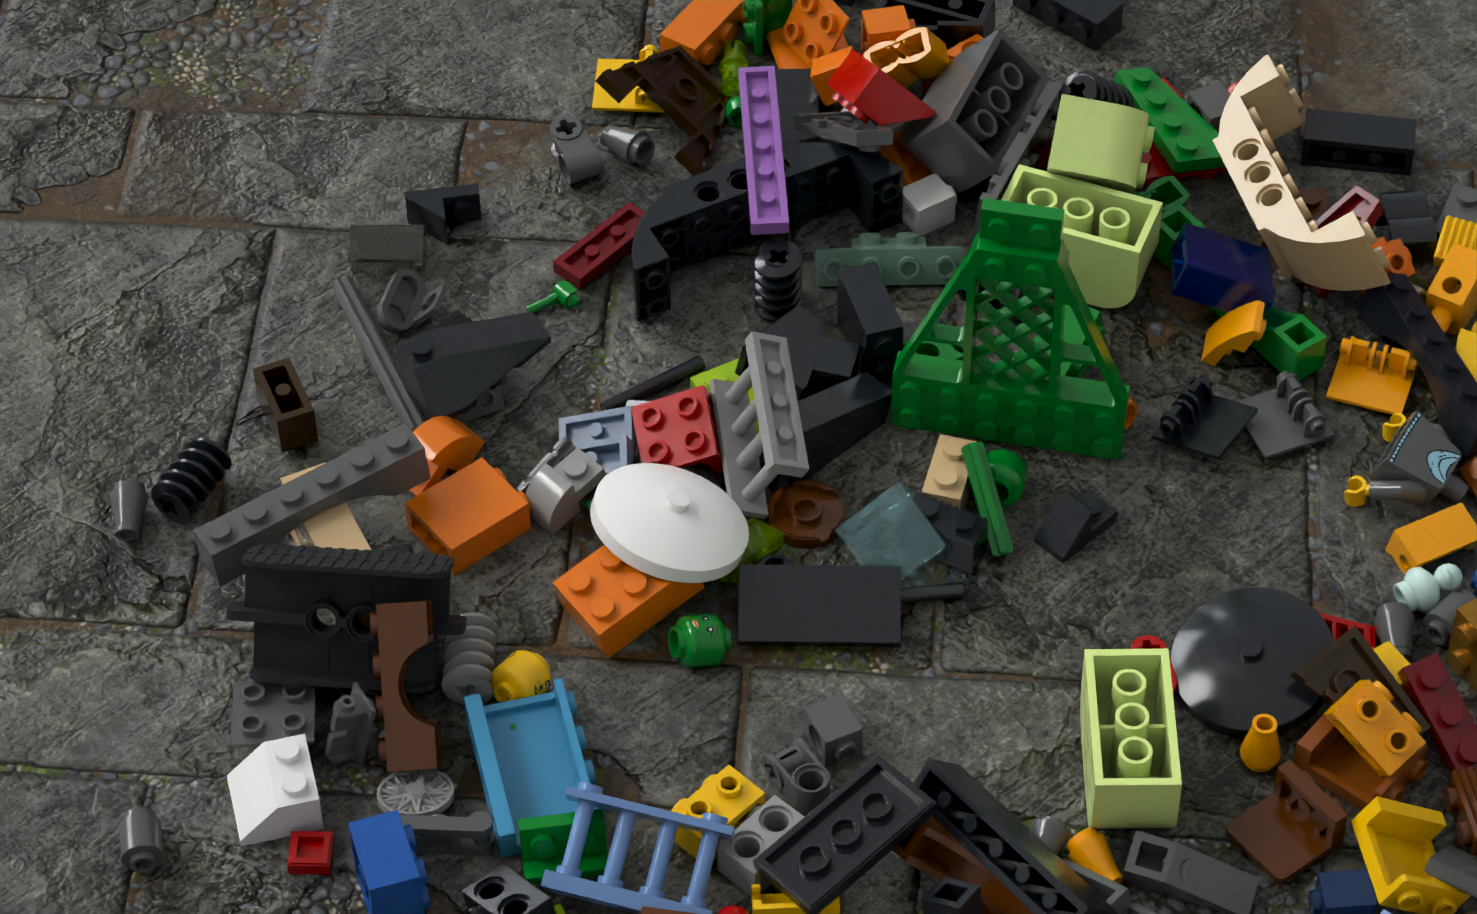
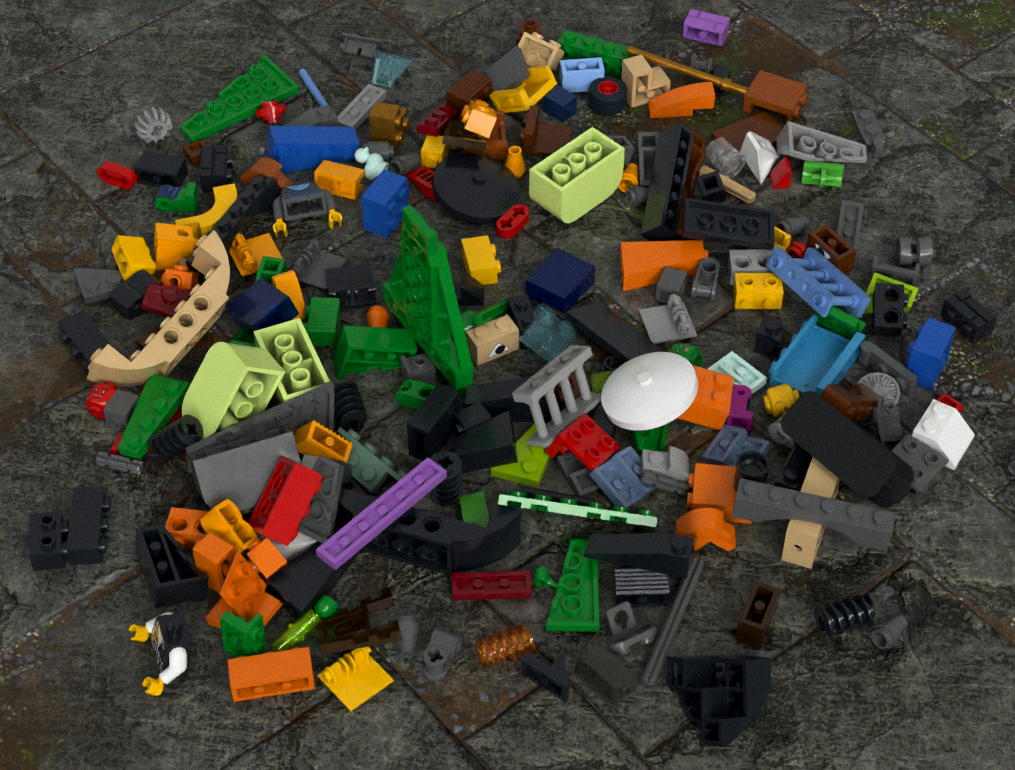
camera: 135 degrees left, 0 degrees up
(251, 311) = (720, 692): none -> black brick
(435, 505) = (751, 466): none -> black wheel
(497, 289) = (577, 593): none -> green wing
(511, 586) = (731, 443): none -> sand blue slope
(513, 197) = (504, 646): none -> clear orange piece
(563, 631) = (740, 404): none -> magenta leg
(616, 346) = (570, 507): none -> wing
(617, 676) = (741, 371): none -> light aqua wing
(627, 754) = (769, 337): none -> black brick
(702, 286) = (475, 509): none -> bright green slope
(781, 686) = (668, 321): none -> light grey hinge
(904, 732) = (646, 260): none -> orange slope
(947, 209) = (316, 440): none -> light orange brick
(977, 625) = (560, 280): none -> clear blue brick
(1107, 571) = (480, 259): none -> yellow brick
(1166, 355) = (323, 321): none -> green brick
(1312, 531) = (384, 203): none -> blue brick

